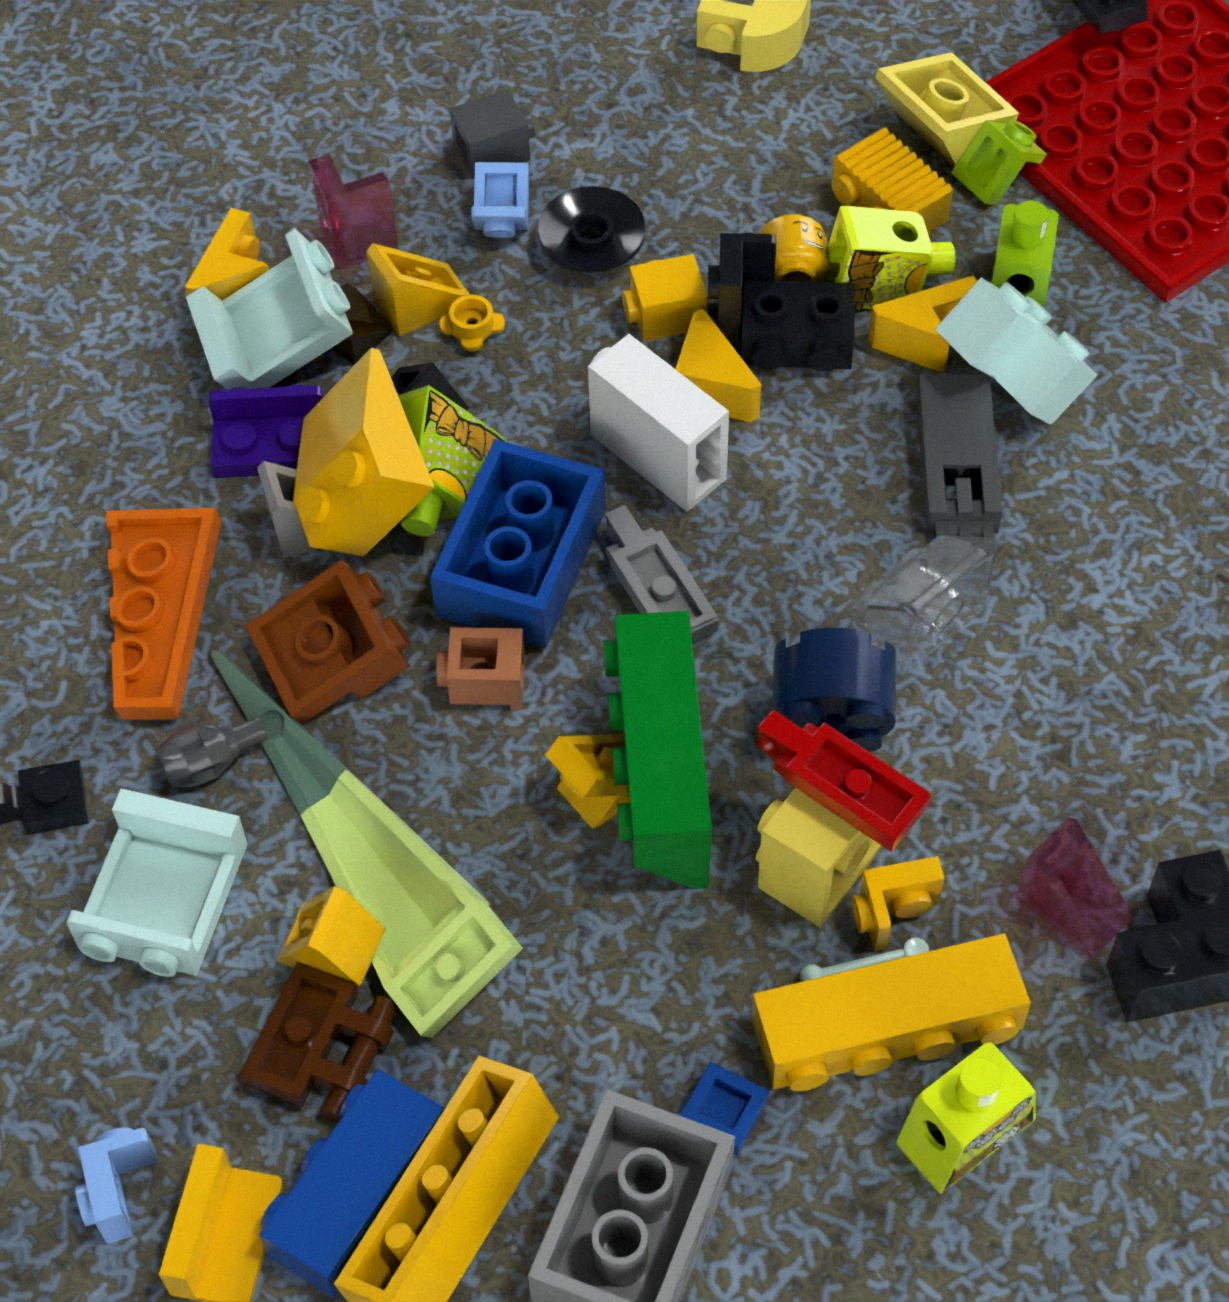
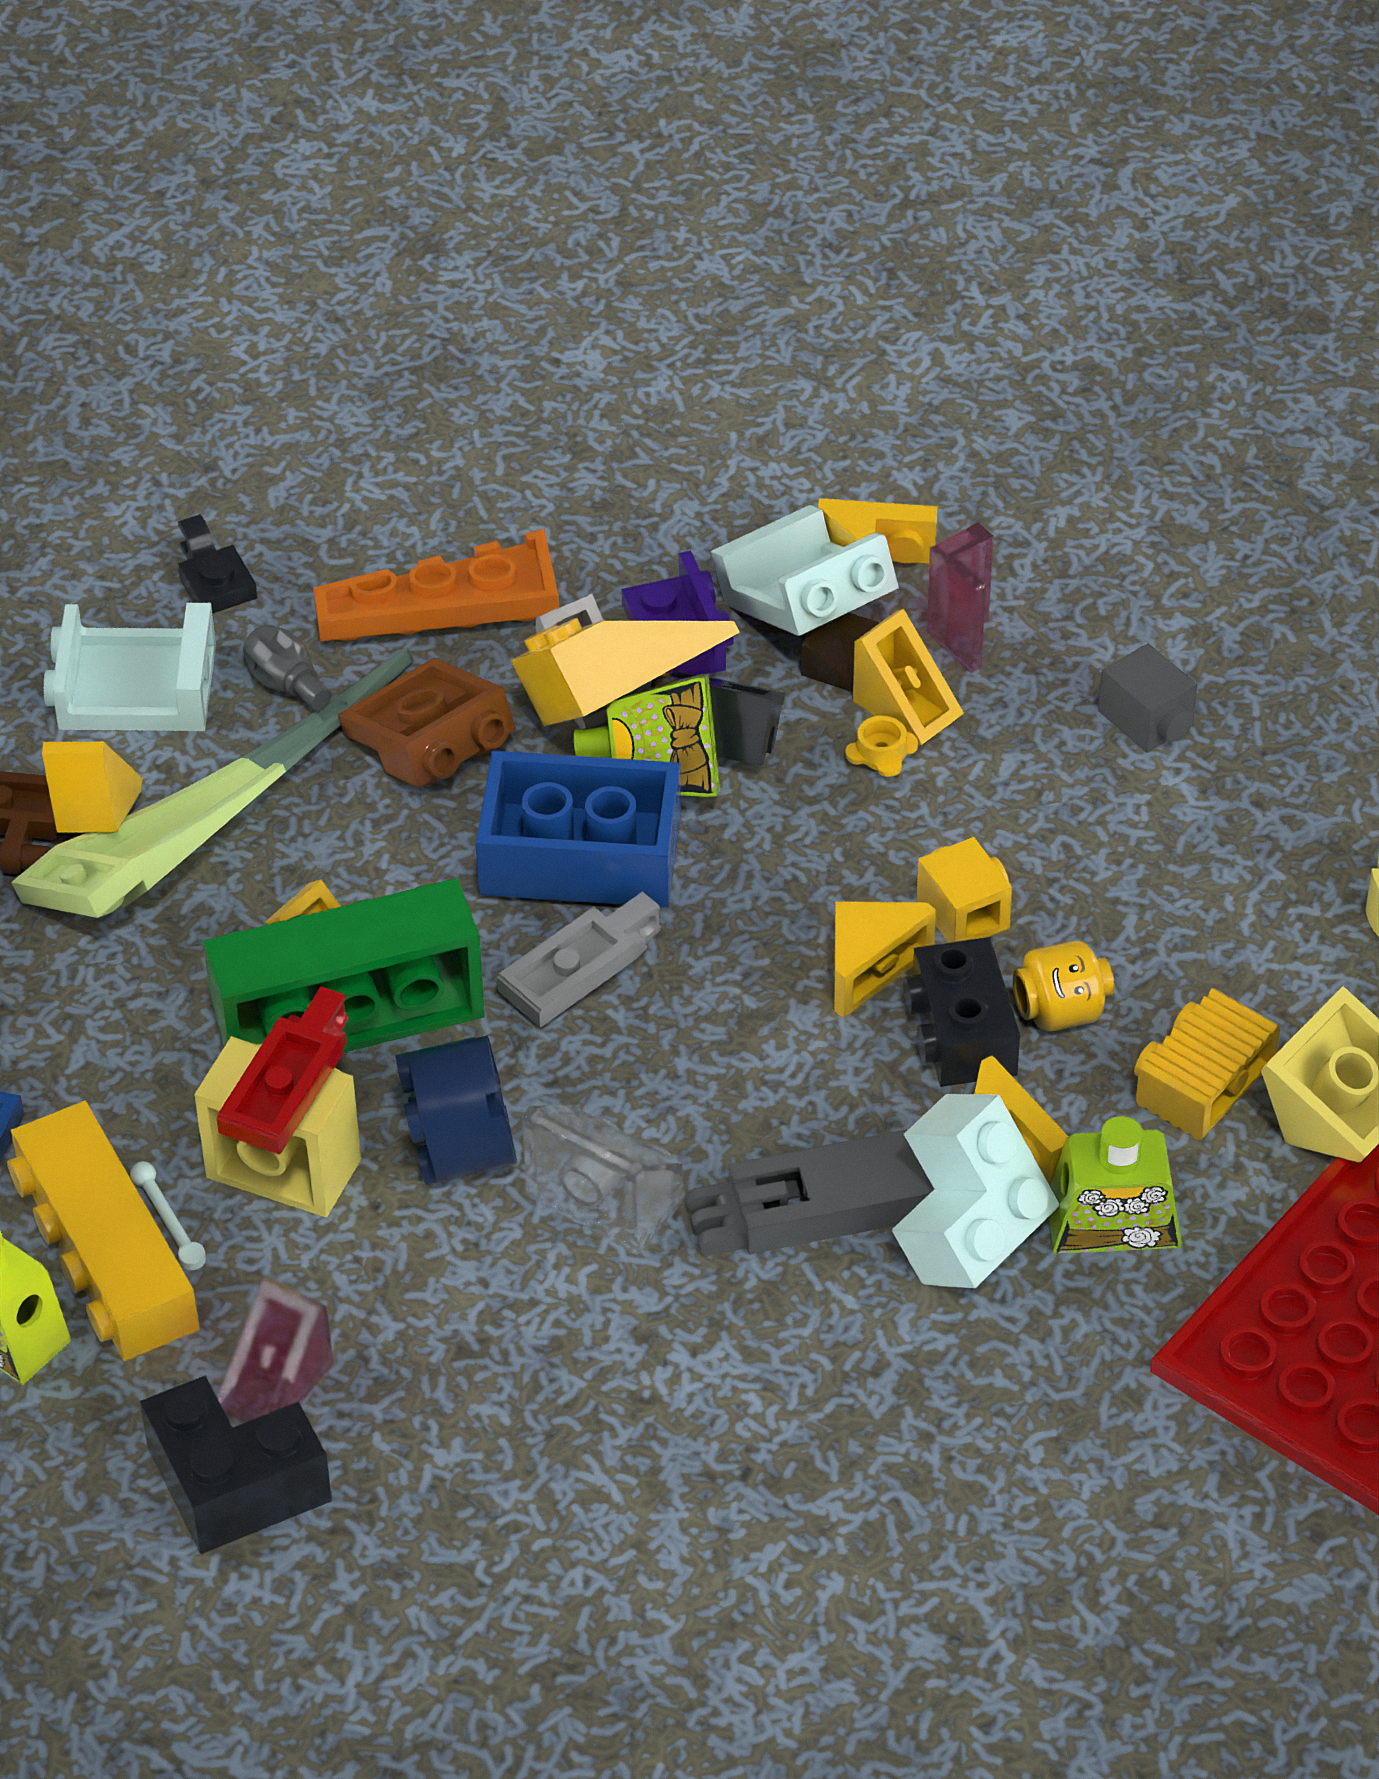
camera: 75 degrees right, 10 degrees down
(483, 666) = (429, 840): nougat brick -> none
(500, 198) = (1054, 728): light blue bracket -> none
(591, 229) = (1039, 809): black dish -> none
(658, 421) = (760, 900): white brick -> none
(740, 259) = (974, 909): black bracket -> none
(884, 254) = (1072, 1053): neon yellow torso -> none
(899, 888) = (233, 1202): yellow bracket -> none
(996, 158) = (1298, 1151): lime bracket -> none

